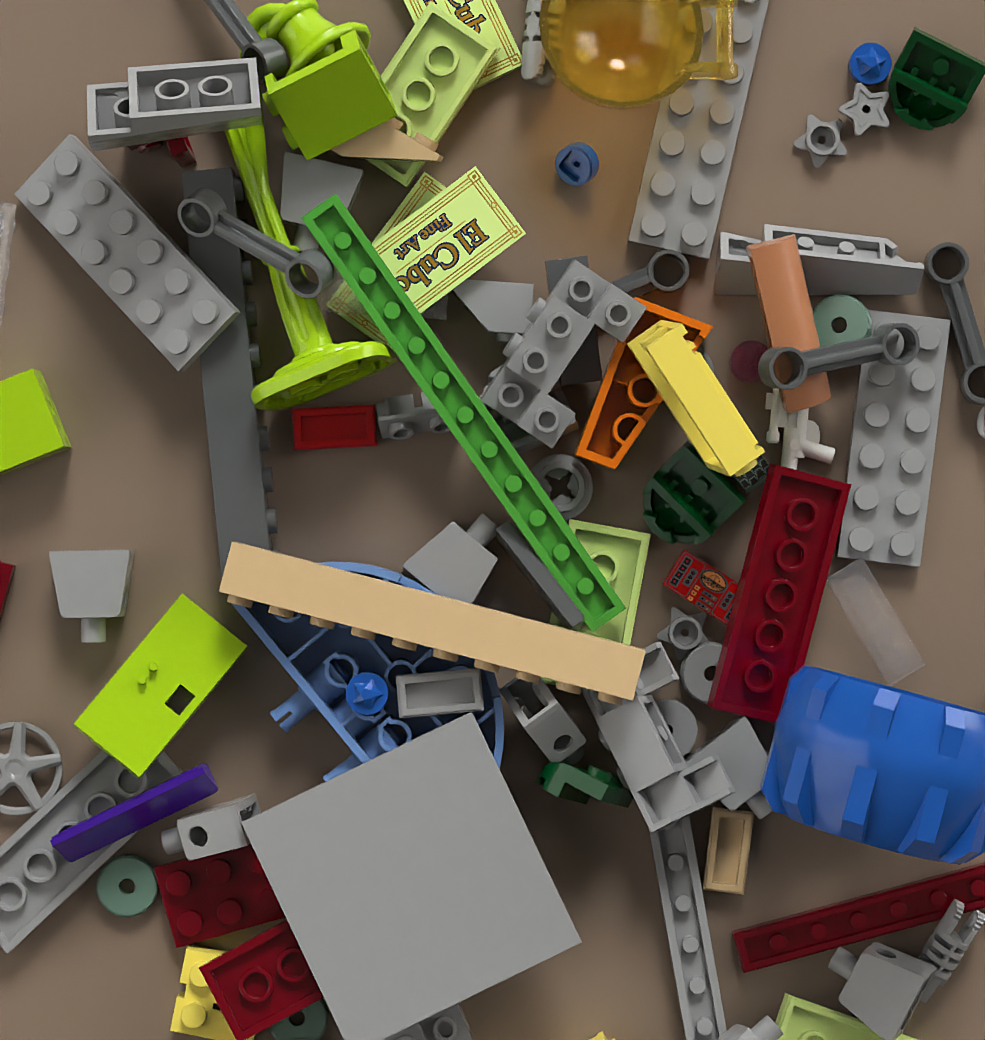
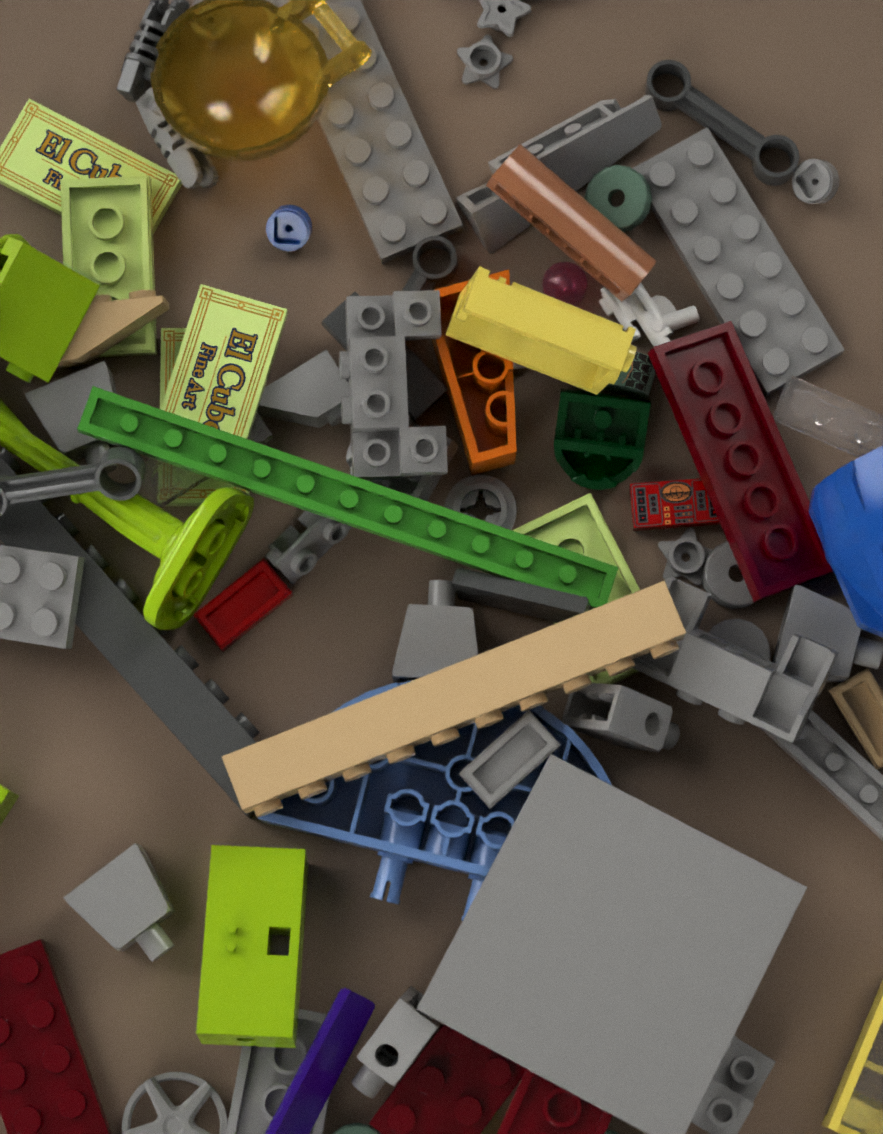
camera: 30 degrees left, 10 degrees down
(367, 693) = (444, 807): blue tile -> none
(579, 784) = (693, 751): dark green slope -> none
(839, 355) = (636, 214): dark grey piece -> none

